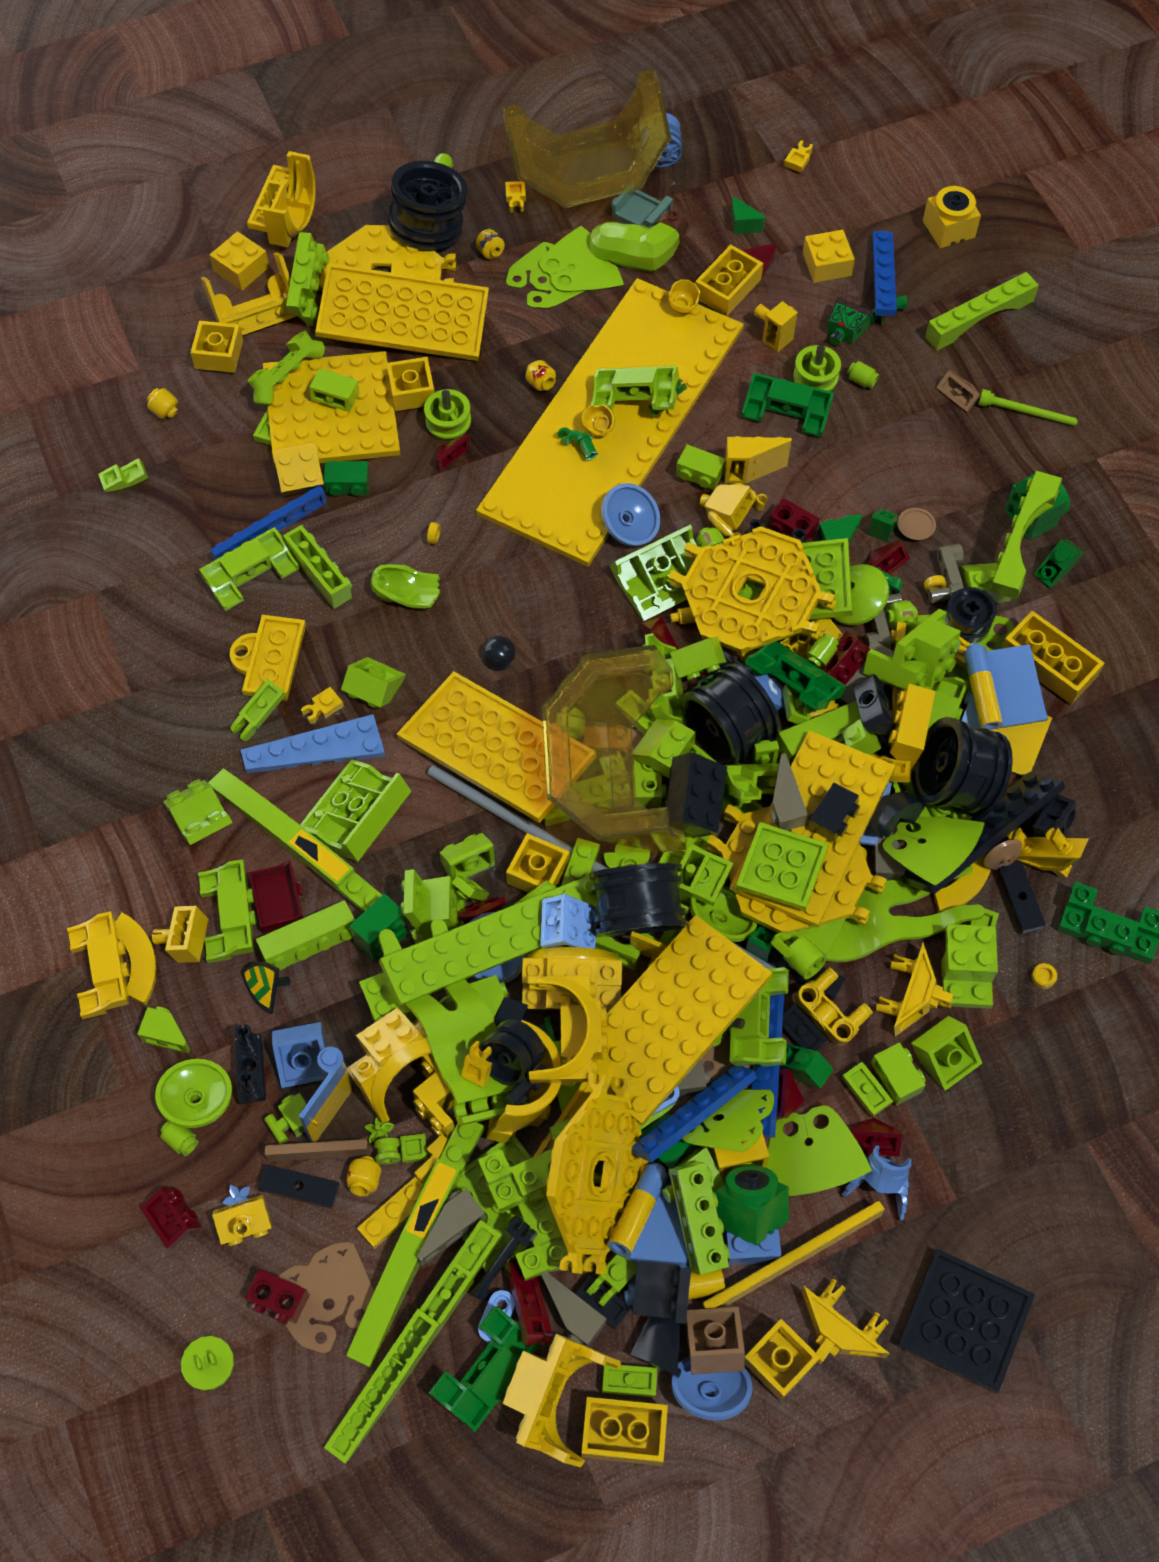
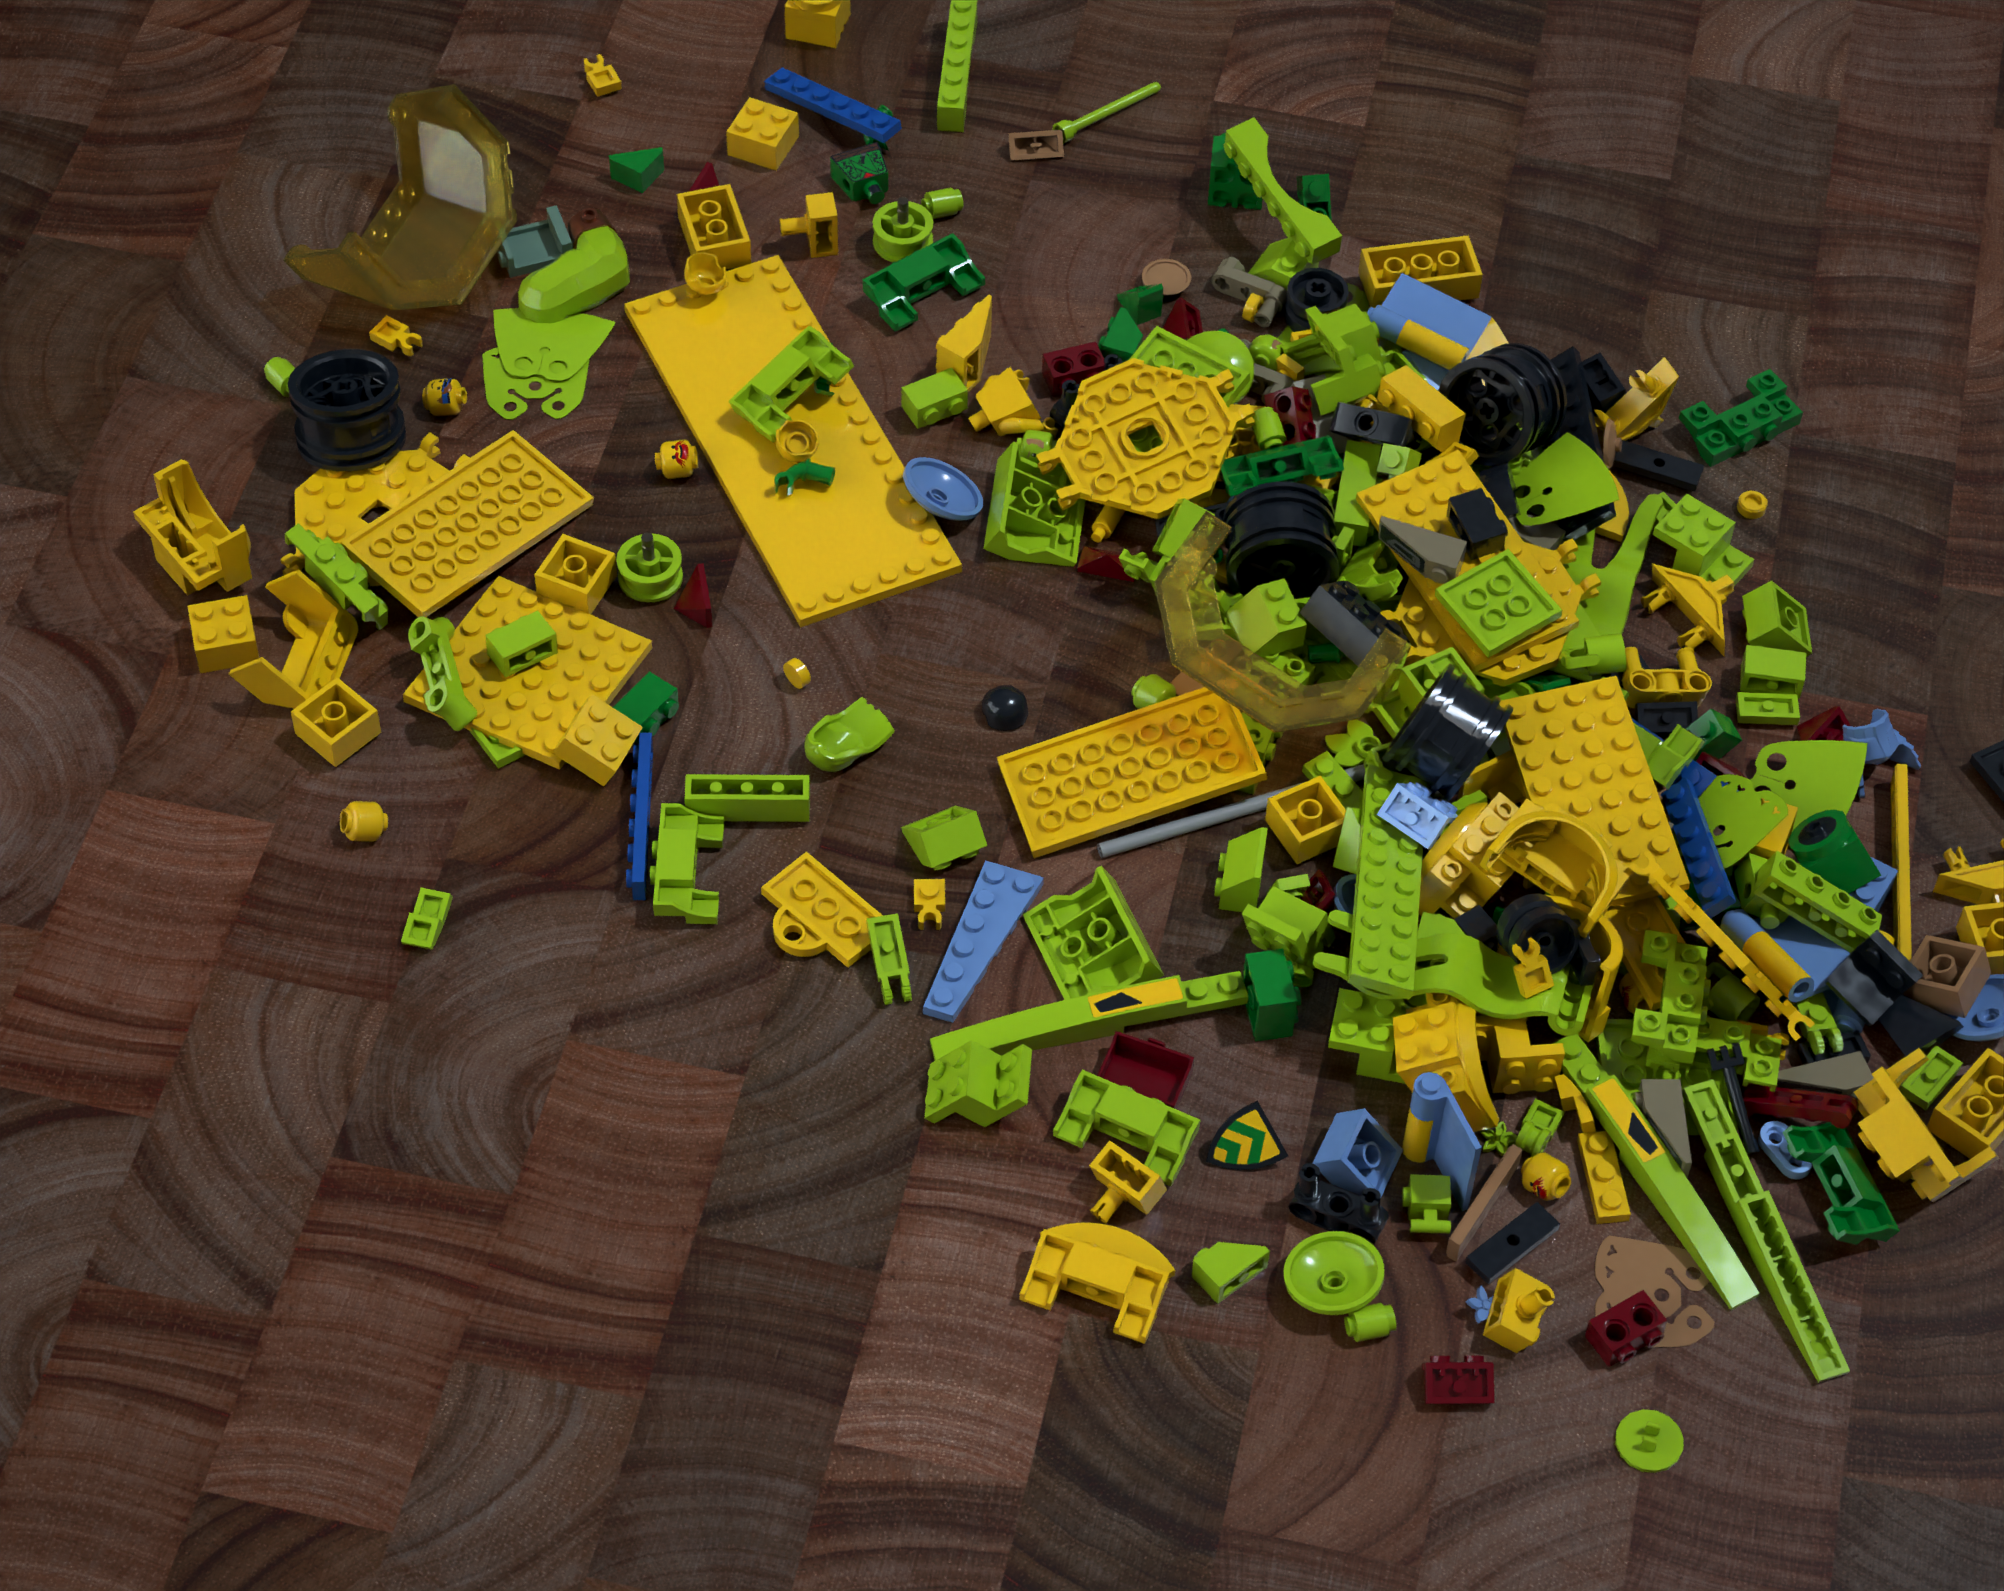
camera: 55 degrees left, 10 degrees down
(307, 936) = (1223, 1066): lime brick -> none

